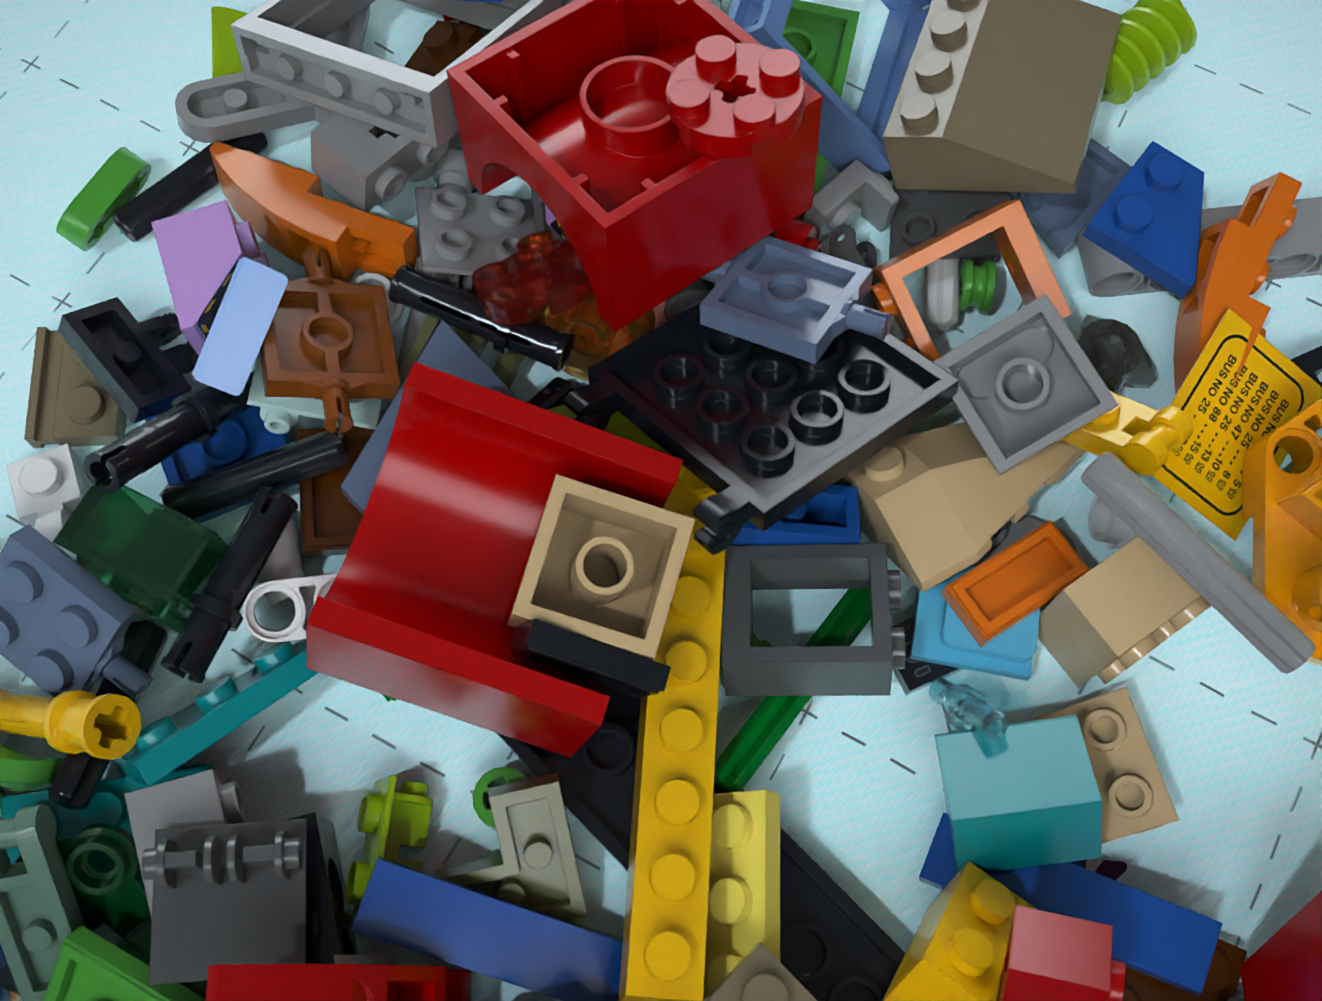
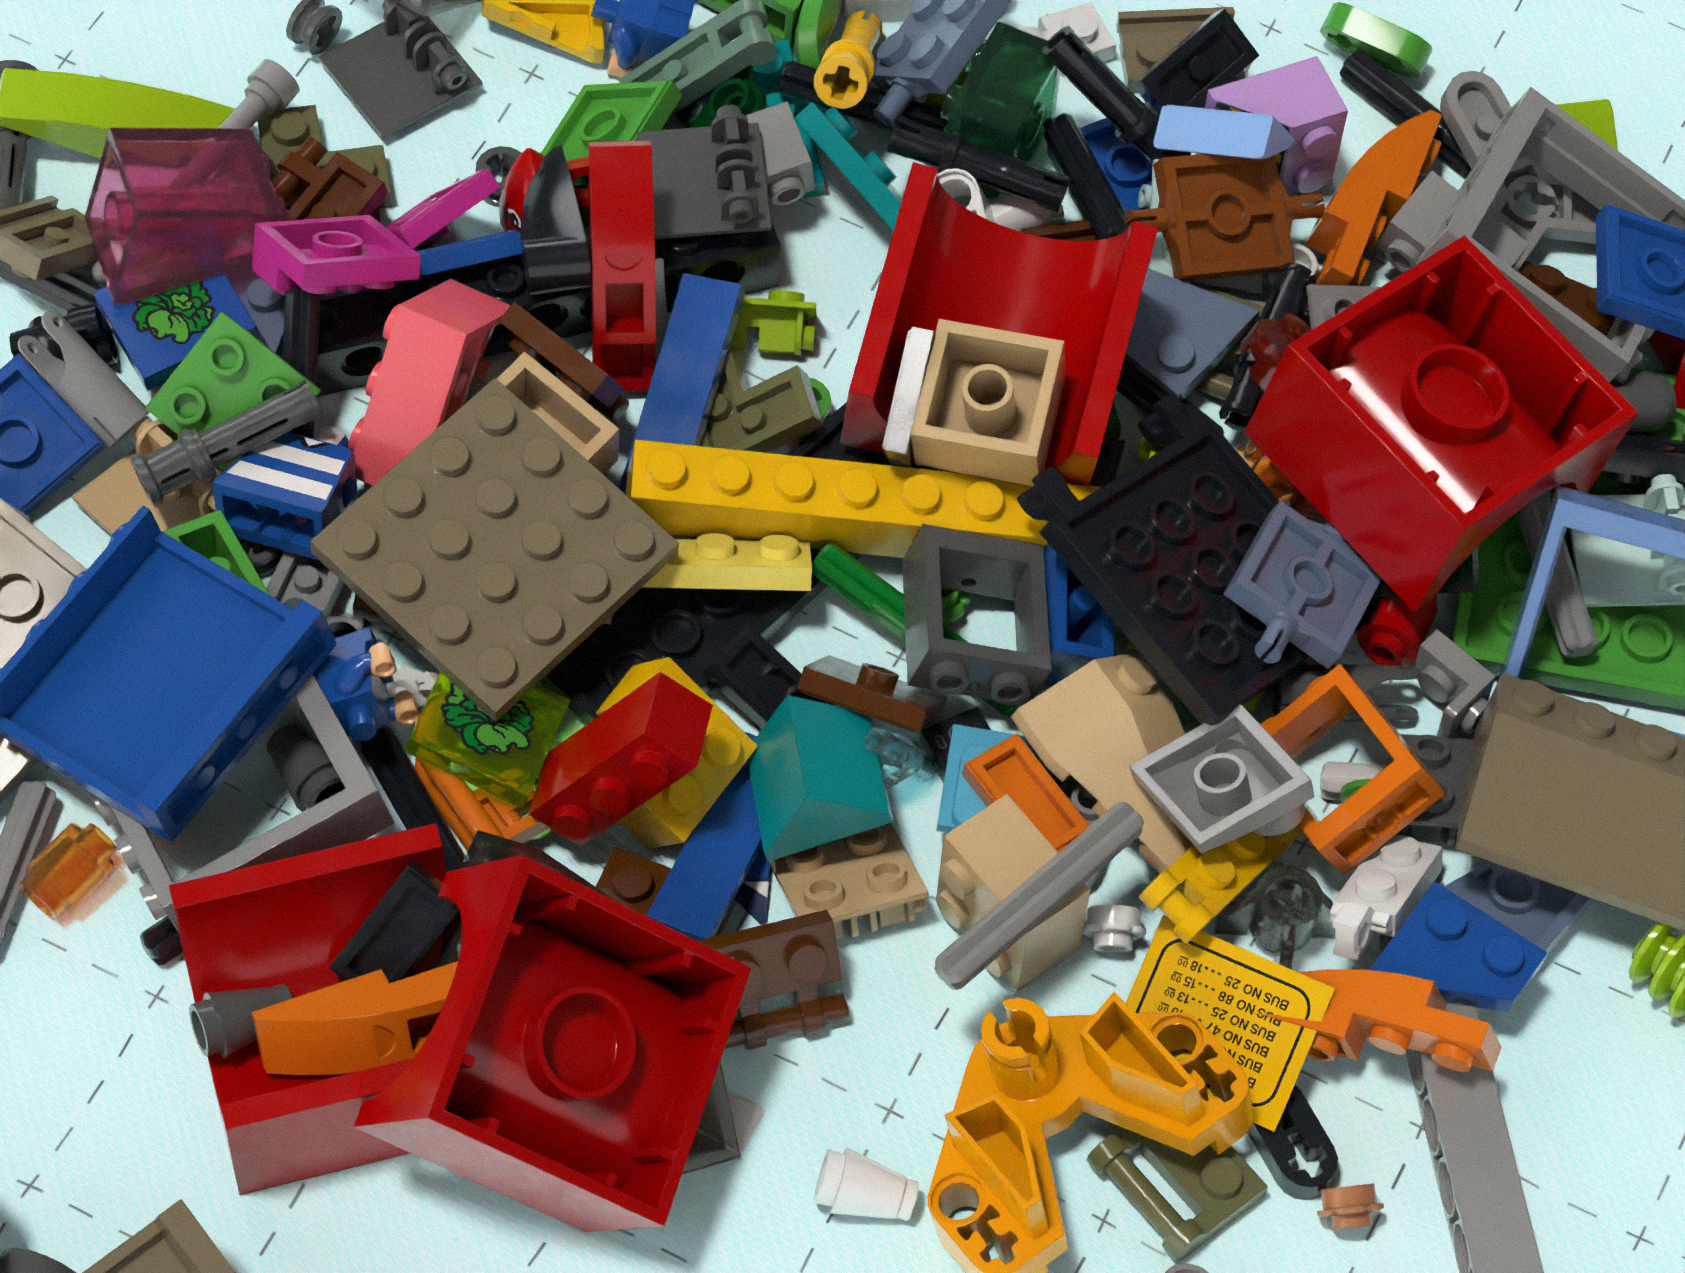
camera: 85 degrees right, 10 degrees down
(768, 103) = (1473, 433): plate -> none
(875, 847) = (754, 675): none -> black plate
(895, 743) = (872, 692): none -> reddish brown plate
(1100, 279) = (1383, 893): none -> white hinge
(1232, 855) = (784, 959): none -> reddish brown plate

